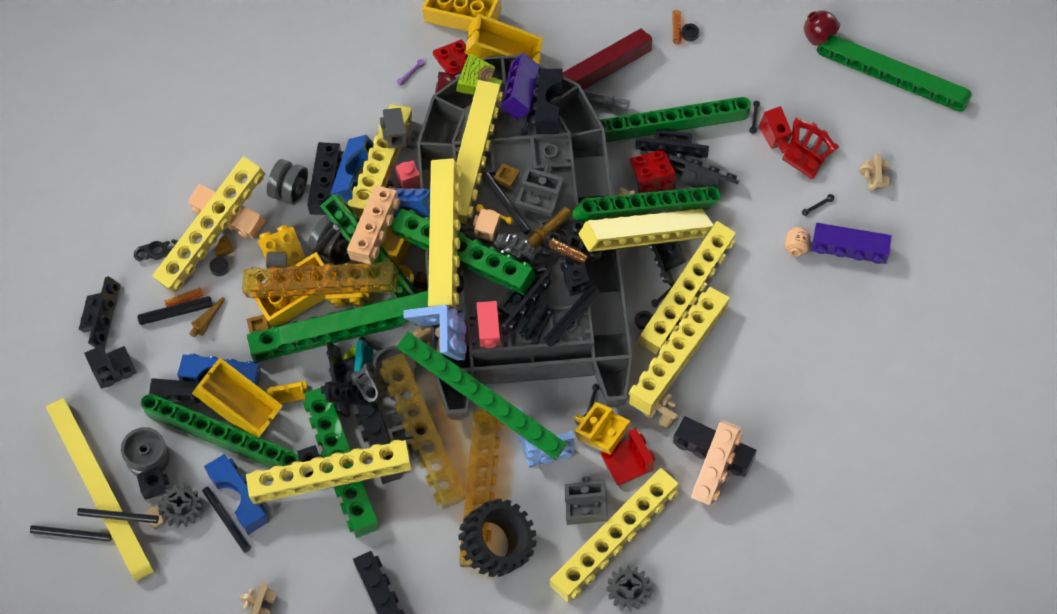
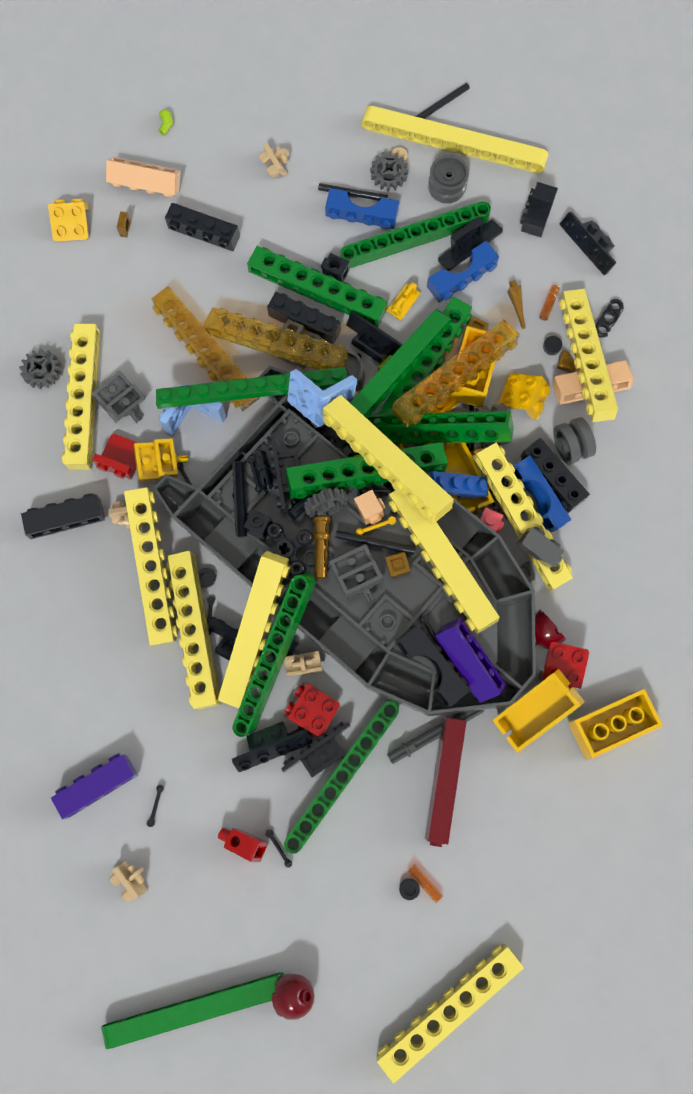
camera: 135 degrees right, 15 degrees up
(118, 515) = (424, 121): black bar -> none
(147, 478) = (424, 163): black brick -> none
(175, 310) = (544, 289): black axle -> none
(237, 398) = (424, 253): yellow piece -> none
(276, 259) = (509, 369): dark grey piece -> none
(326, 239) = (487, 402): black bar -> none
(338, 476) = (319, 235): light yellow brick -> none
(343, 393) = (354, 316): black bracket -> none
(363, 355) = (370, 359): teal tile -> none
(369, 381) = (344, 336): dark grey piece -> none
(373, 225) = (453, 429): light nougat brick -> none
(420, 63) = (596, 647): medium lavender hinge -> none
(475, 70) = (516, 641): lime torso -> none
(488, 324) = (290, 431): coral brick -> none
(516, 530) = (134, 308): black tyre -> none
(567, 250) = (281, 534): clear orange piece -> none
(716, 462) = (42, 496): light nougat brick -> none
(797, 241) = (141, 750): light nougat head -> none
(802, 157) = (201, 837): red plate -> none

